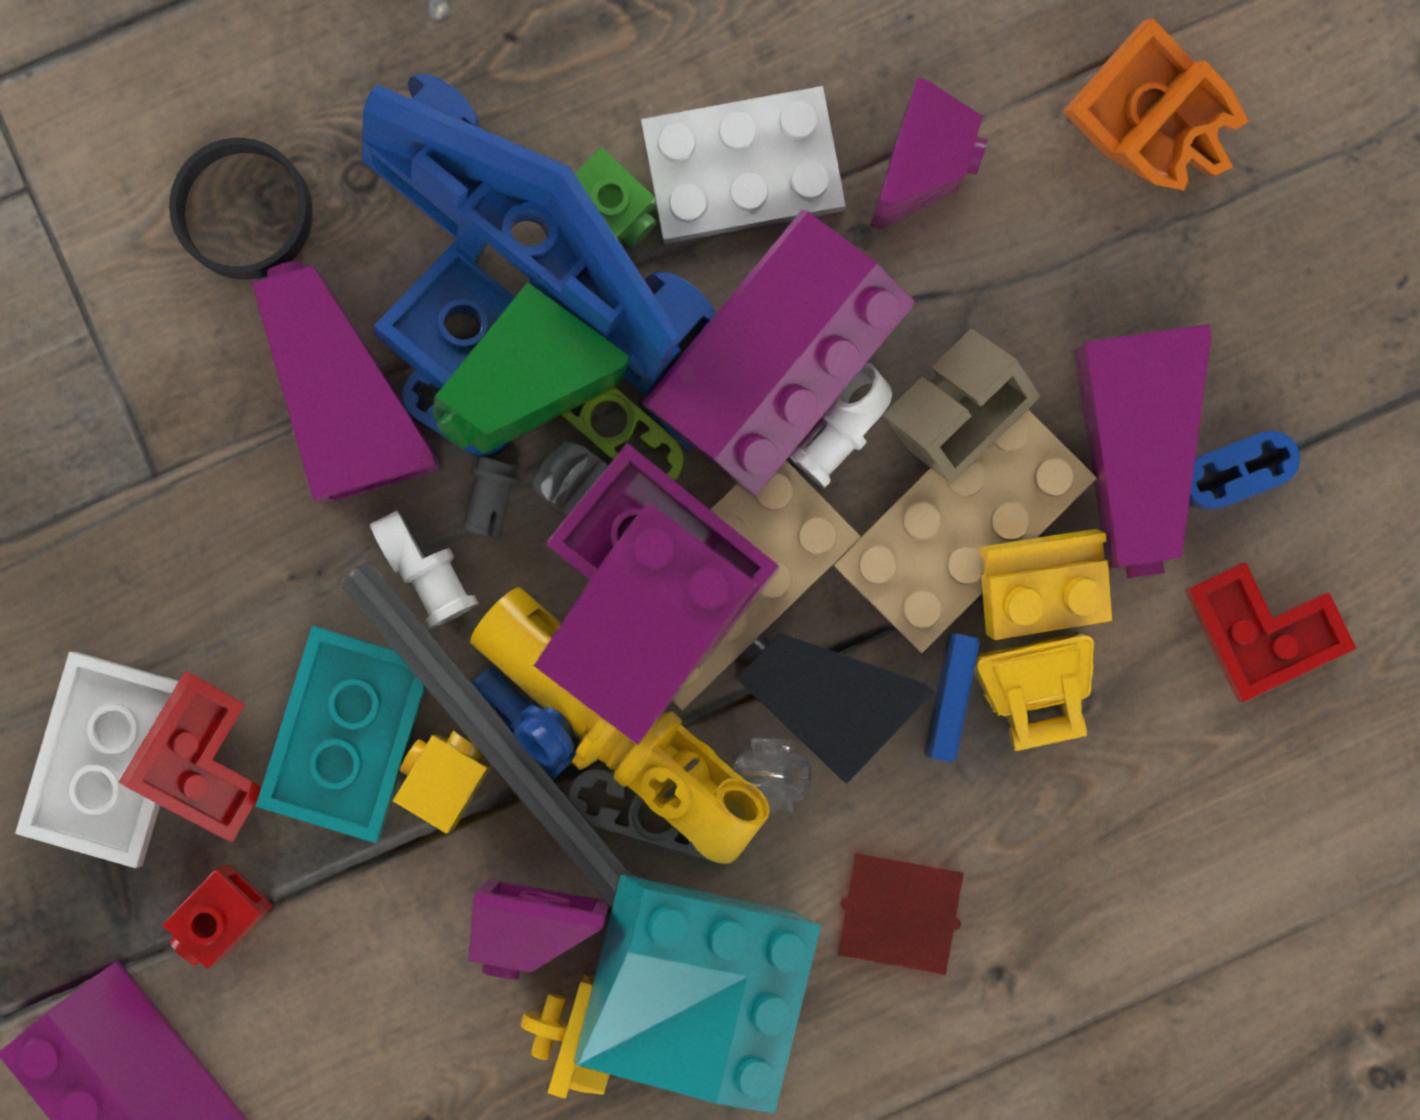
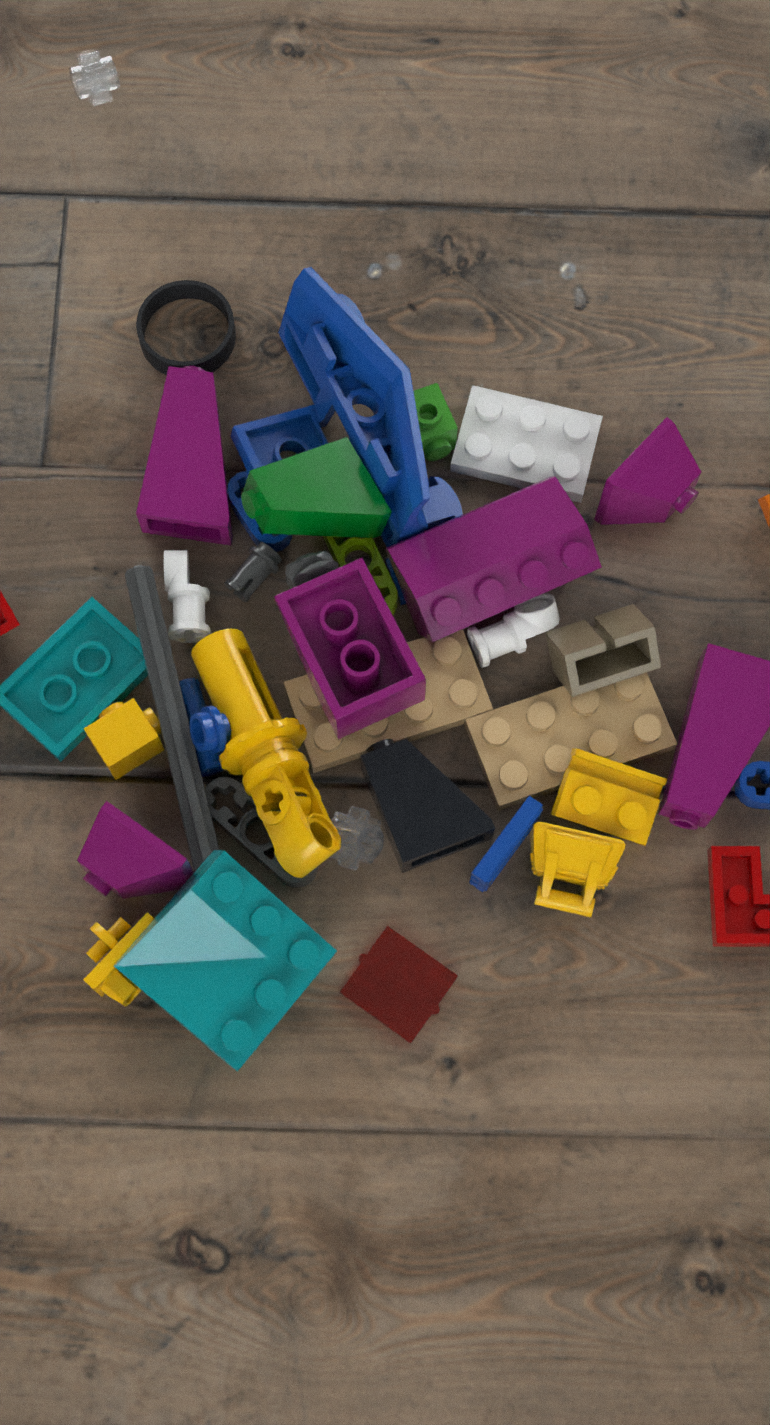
camera: 25 degrees right, 15 degrees down
(644, 623) = (317, 668): magenta slope -> none

